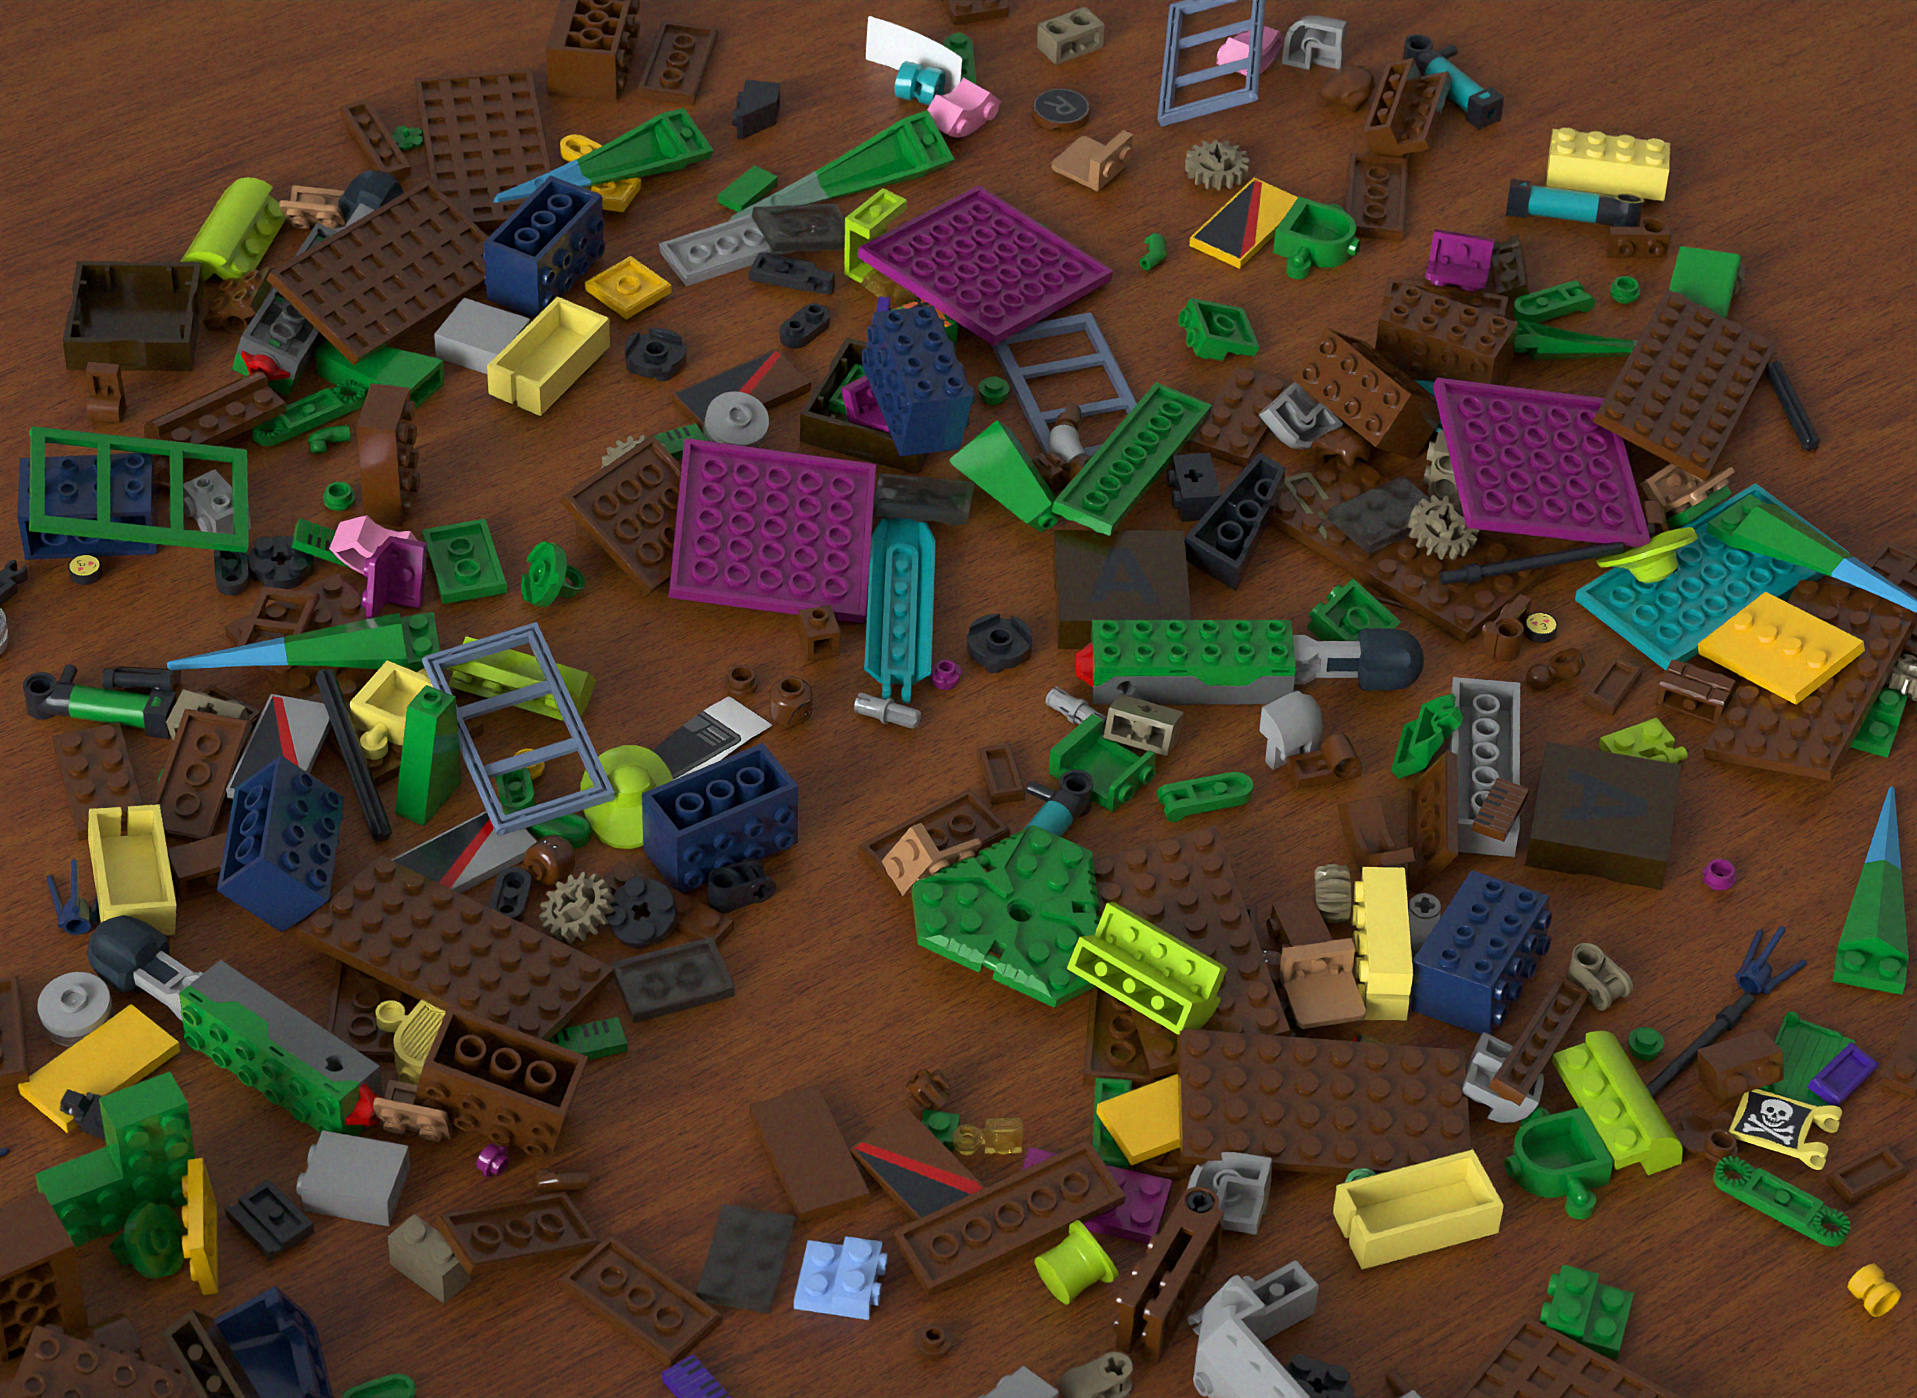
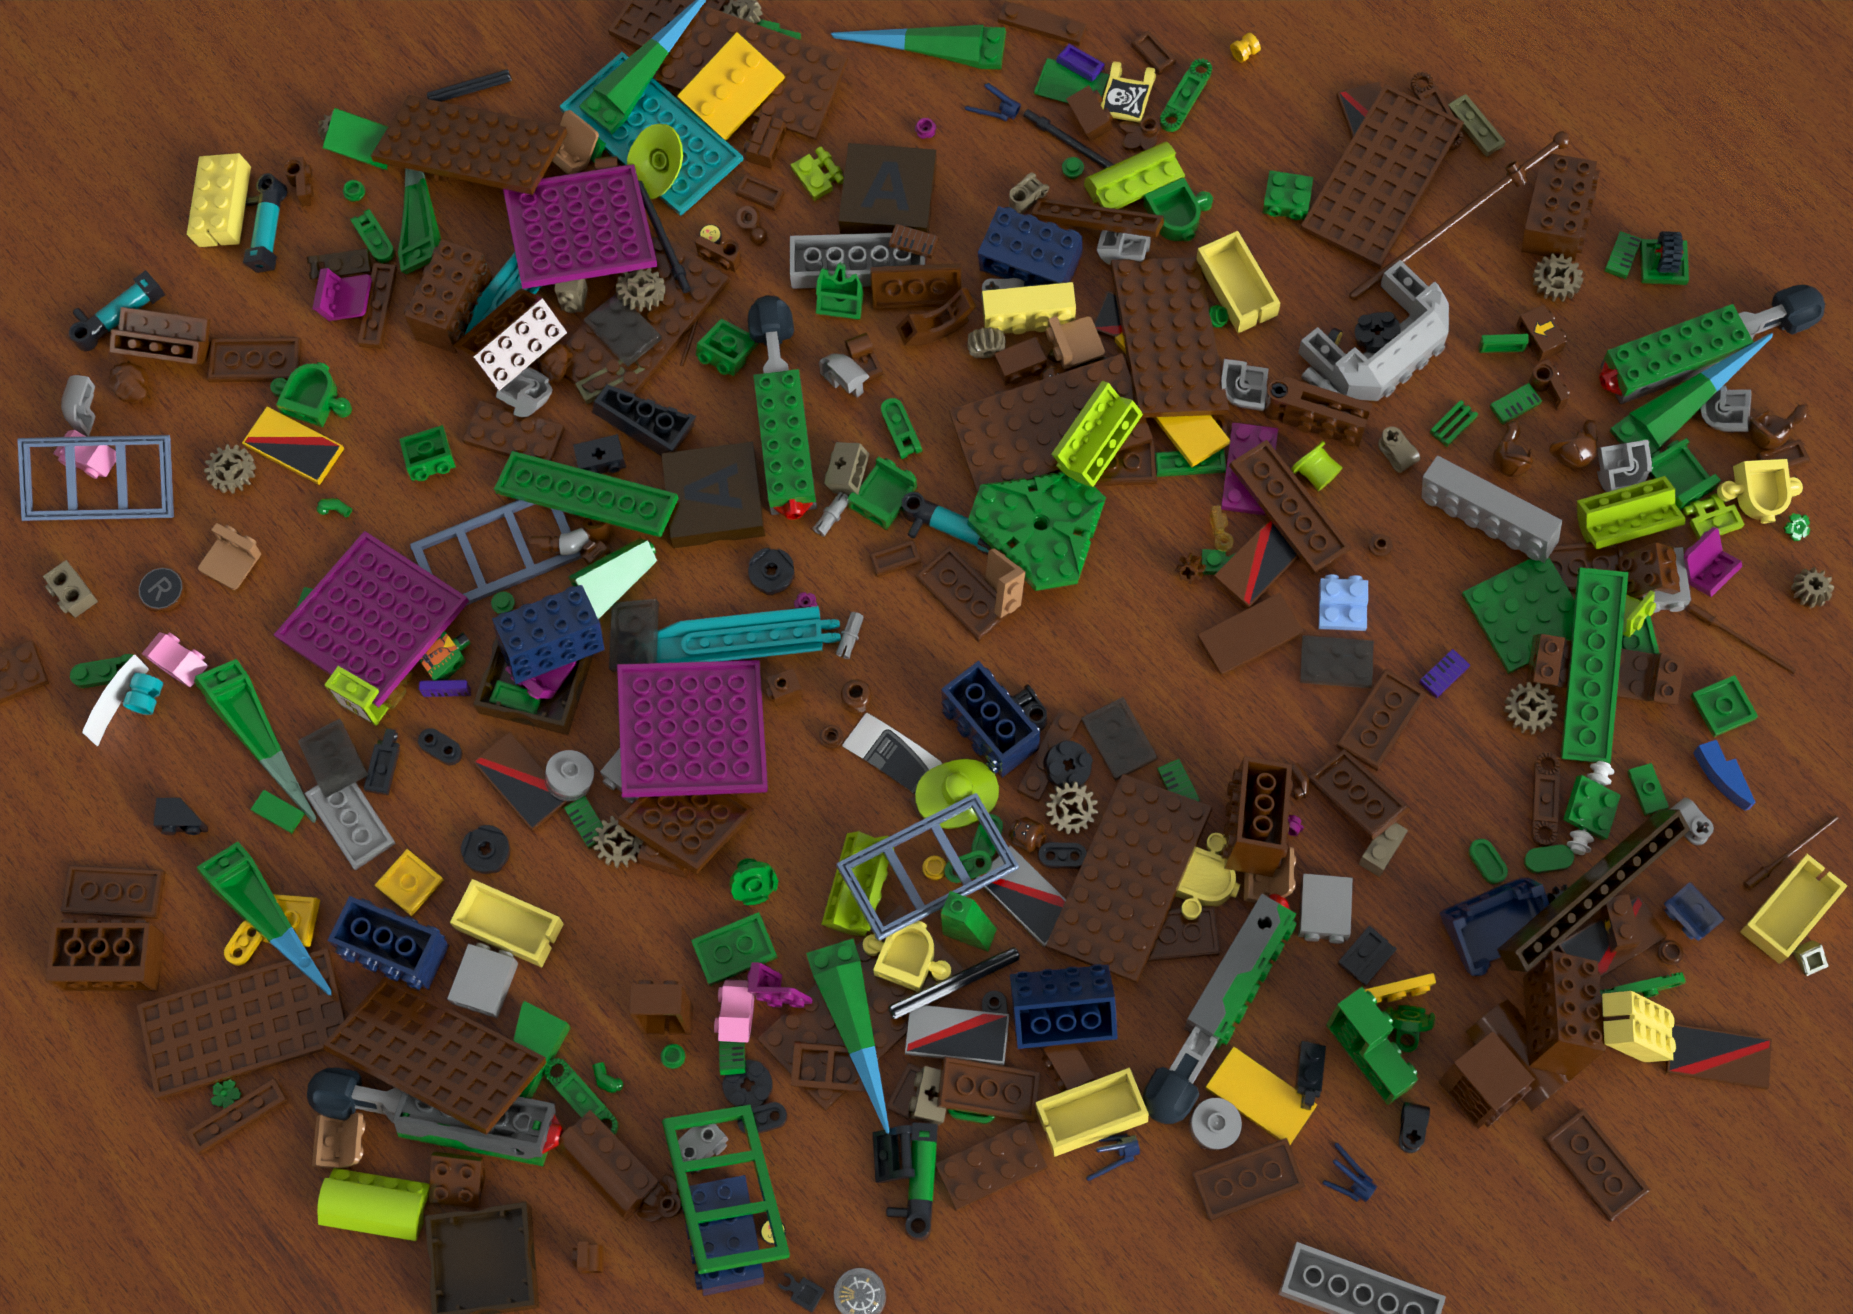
camera: 90 degrees left, 25 degrees up
(1307, 1326) = (1335, 335): none -> black tile

